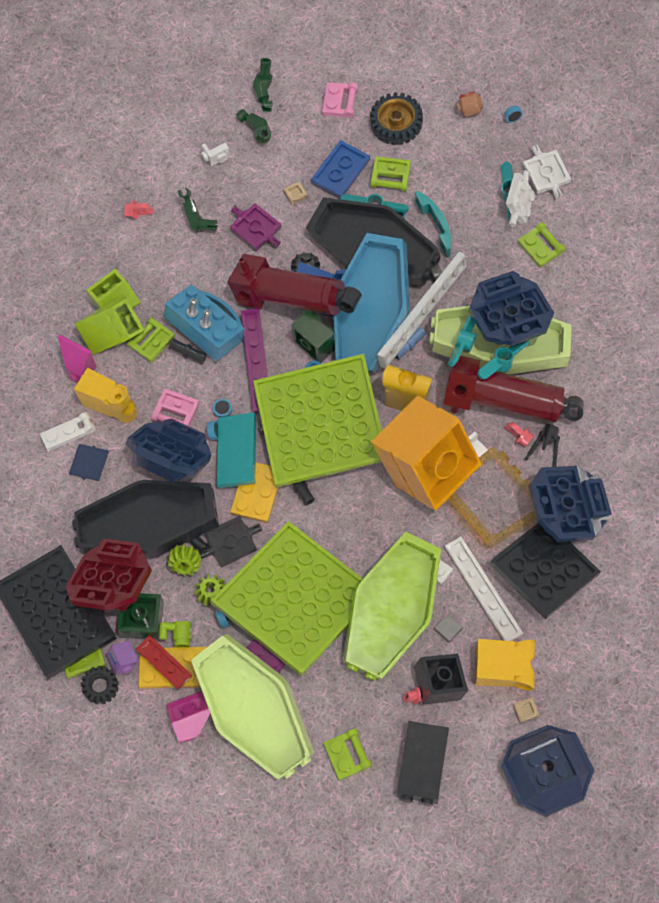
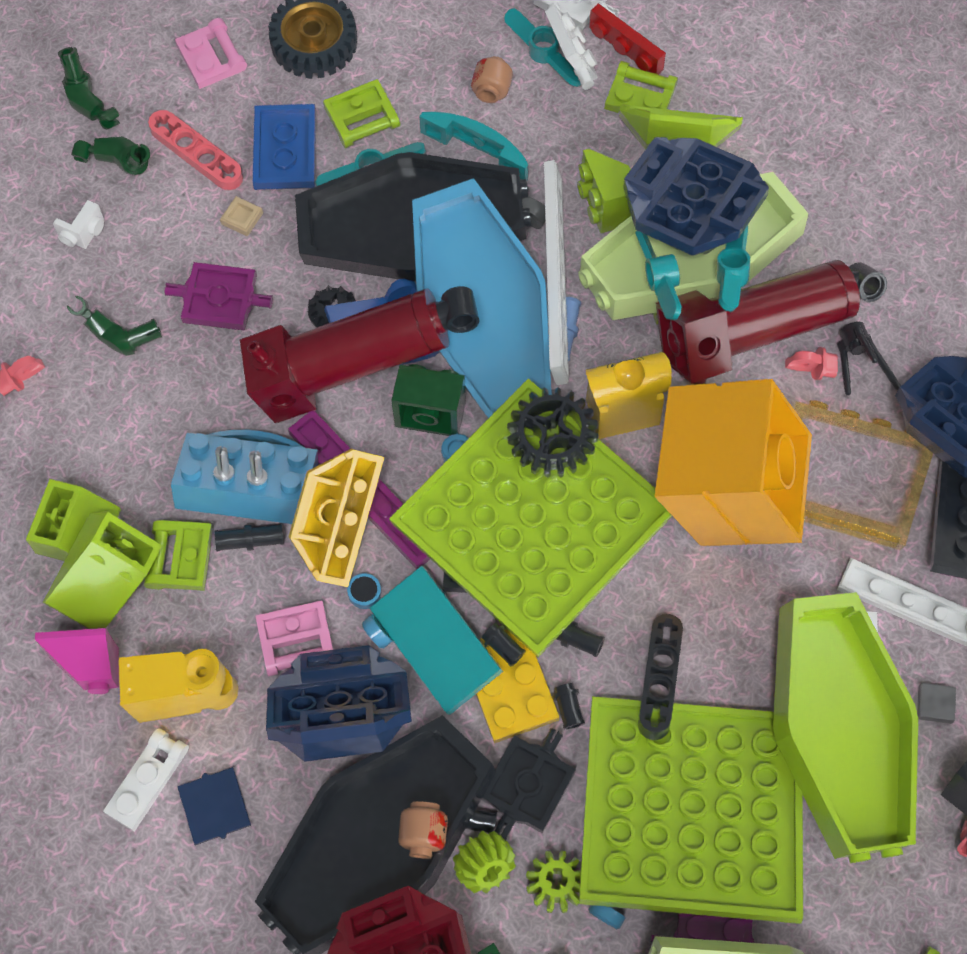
camera: 40 degrees left, 0 degrees up
(163, 525) = (422, 829): none -> nougat head
(228, 363) = (335, 513): none -> yellow wedge
(263, 470) = (503, 644): none -> black pin
(275, 518) = (568, 705): none -> black pin
(297, 146) = (196, 149): none -> coral beam
(328, 533) = (660, 675): none -> black beam
(340, 394) = (530, 419): none -> black gear
(469, 193) = (491, 79): none -> nougat head
(477, 273) = (603, 188): none -> lime slope
(547, 280) = (649, 123): none -> lime wedge
(553, 213) = (626, 40): none -> red plate

